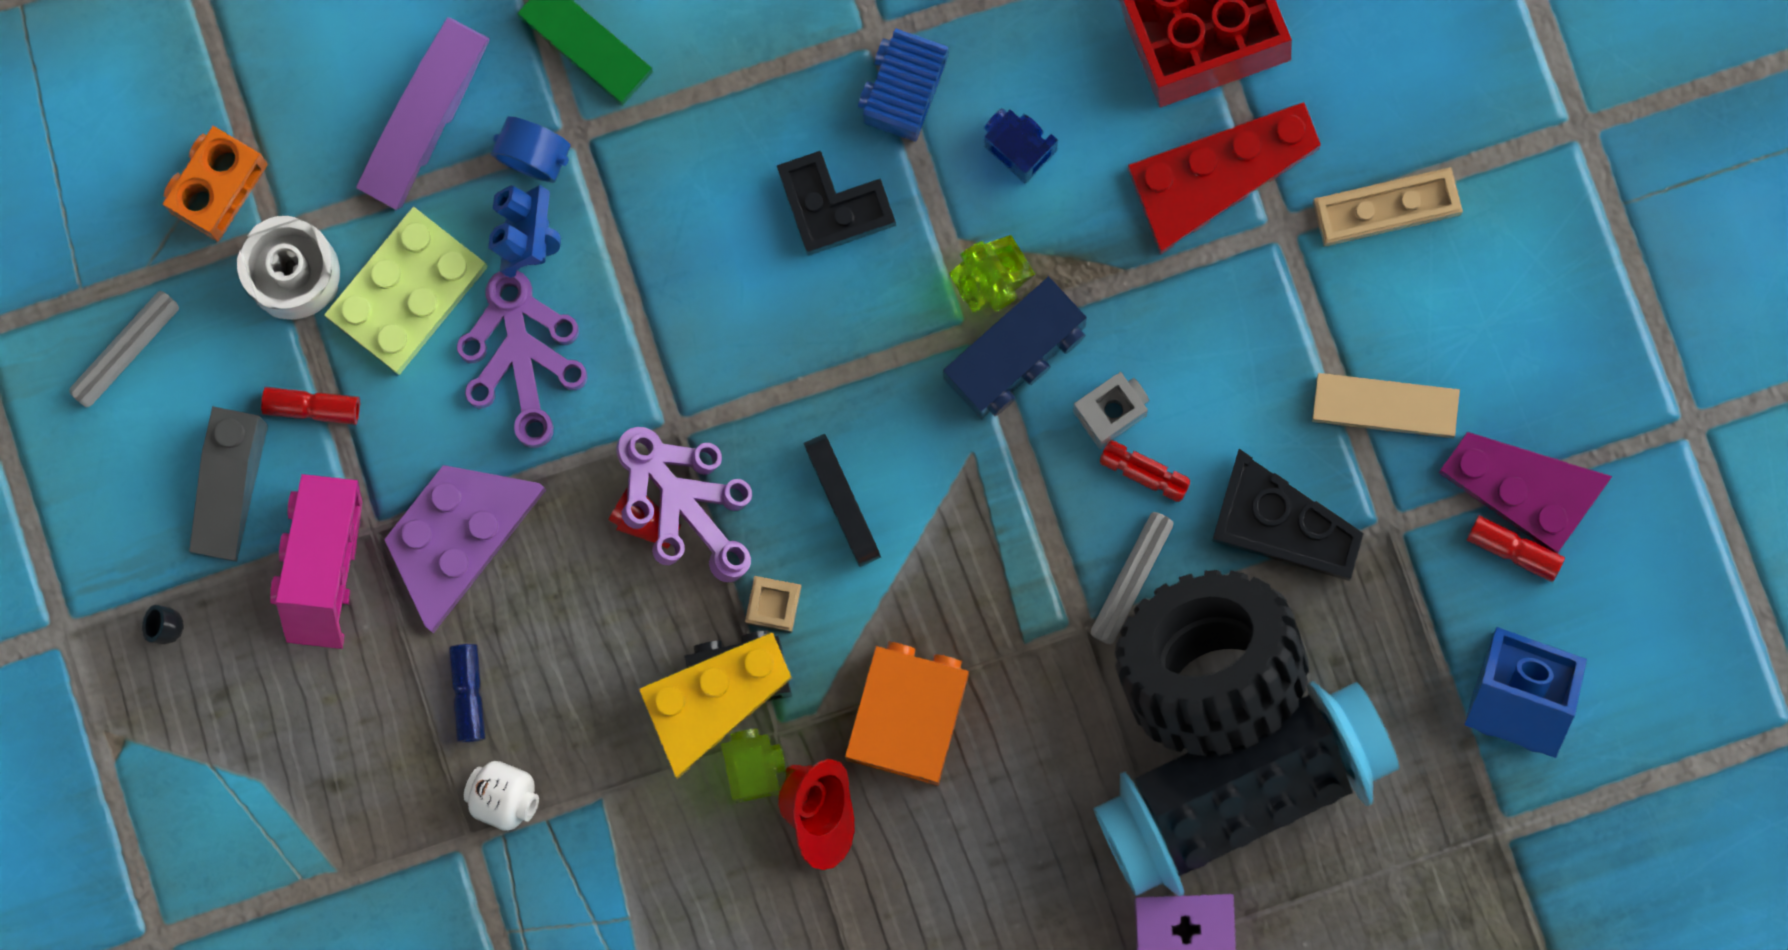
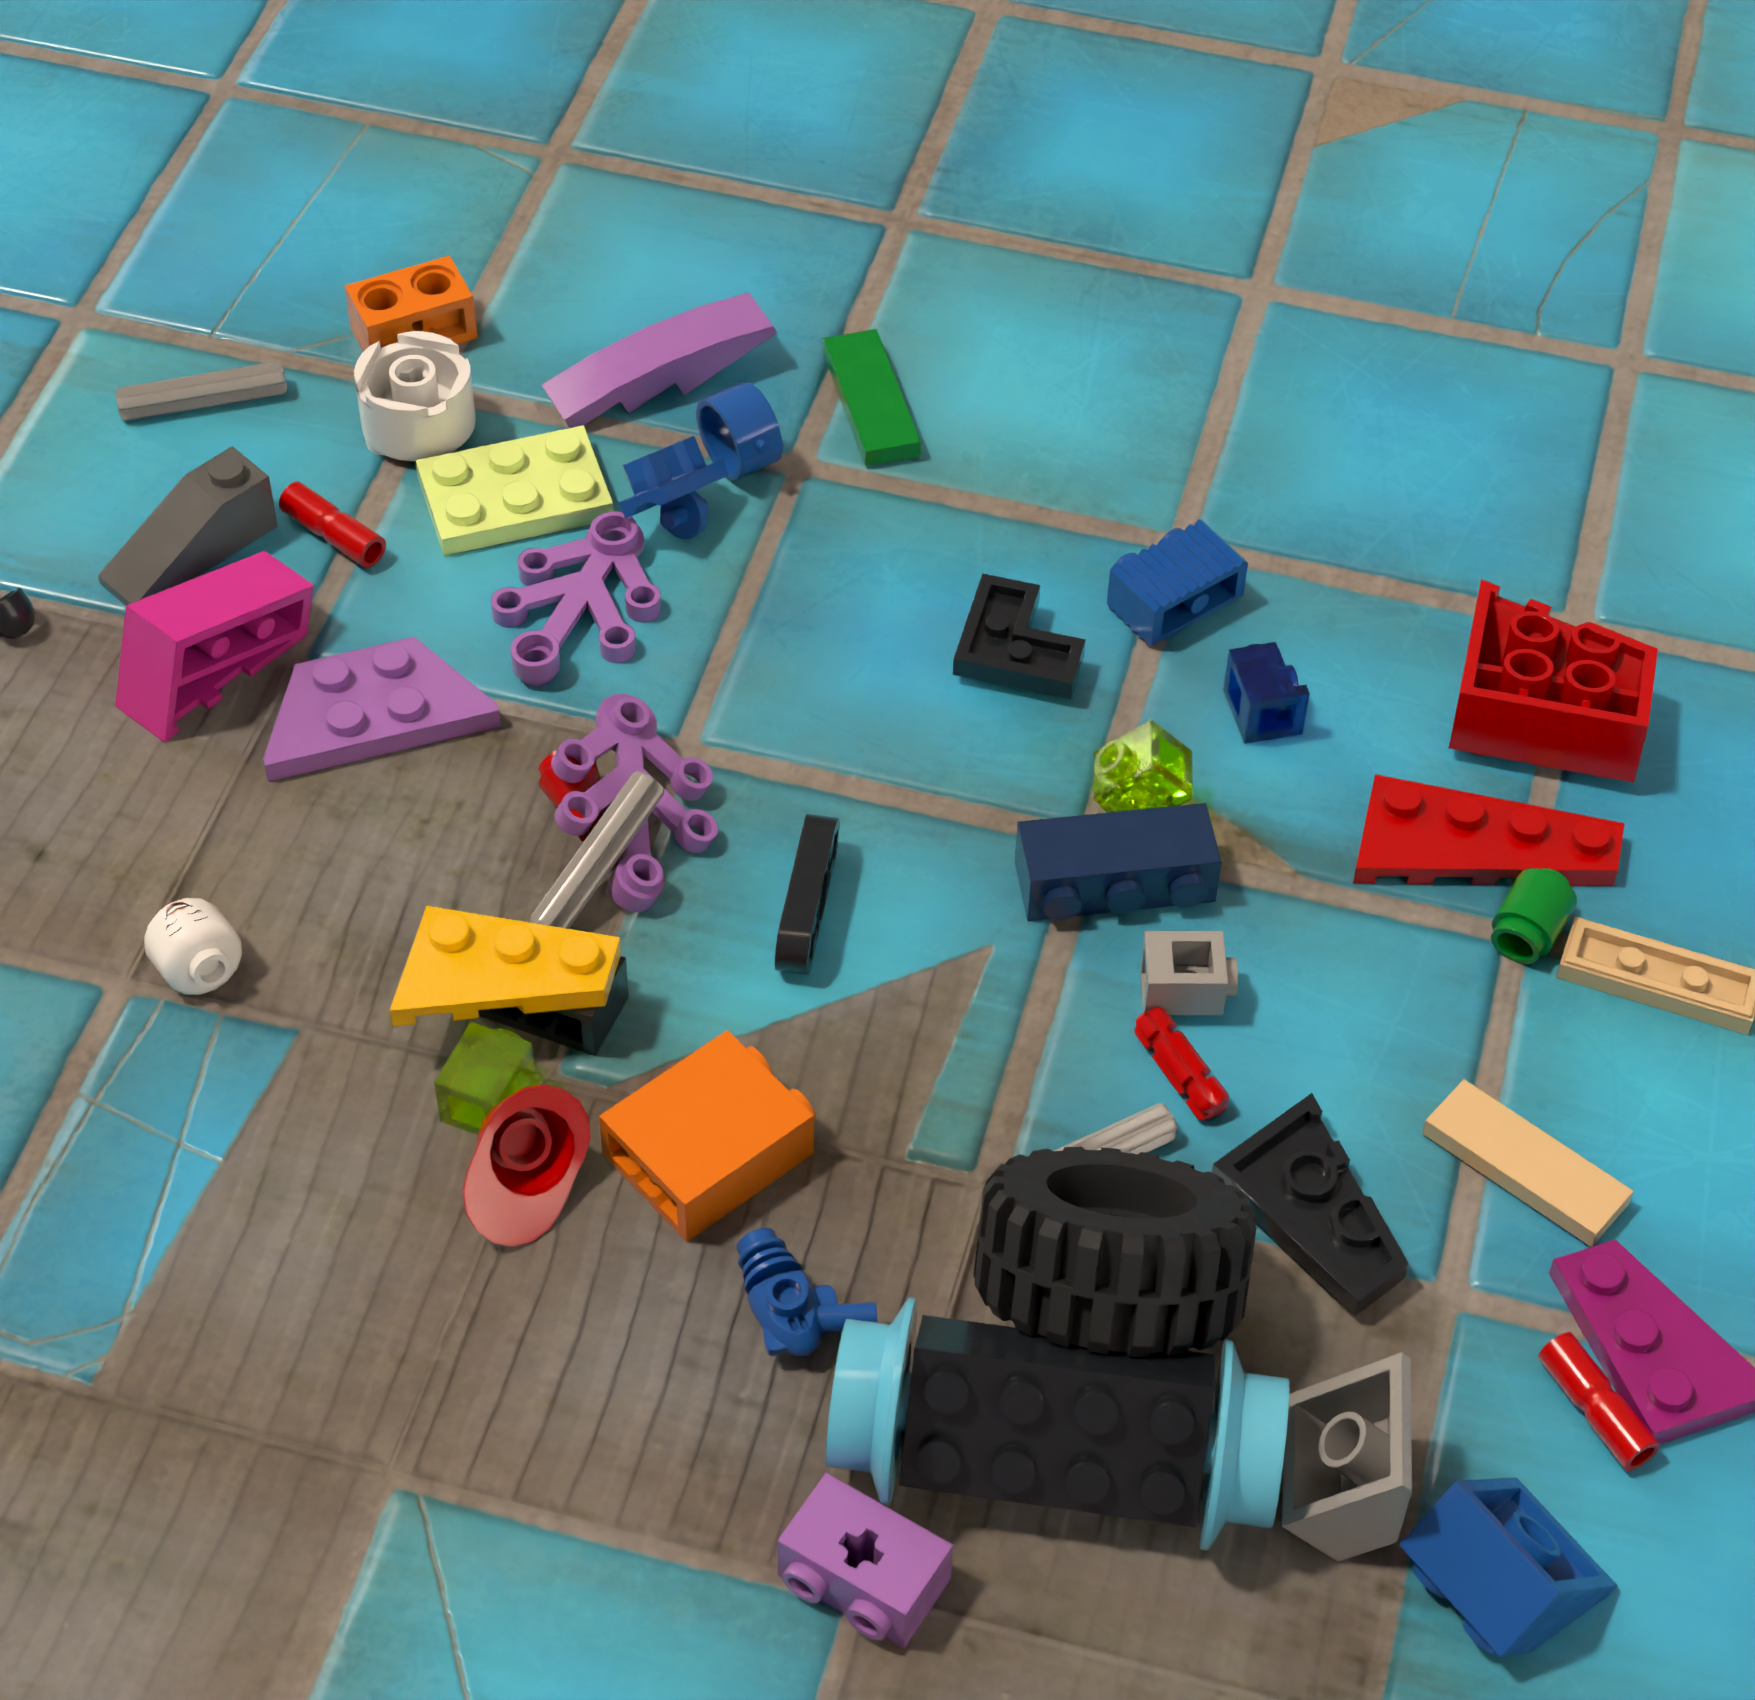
camera: 25 degrees right, 30 degrees down
(467, 700) = (244, 849): clear blue piece -> none
(699, 565) = (599, 852): none -> light grey axle
(773, 604) = (654, 953): tan tile -> none
(1034, 796) = (785, 1300): none -> blue piece
(1289, 216) = (1533, 915): none -> green brick
(1412, 695) = (1350, 1459): none -> light grey slope

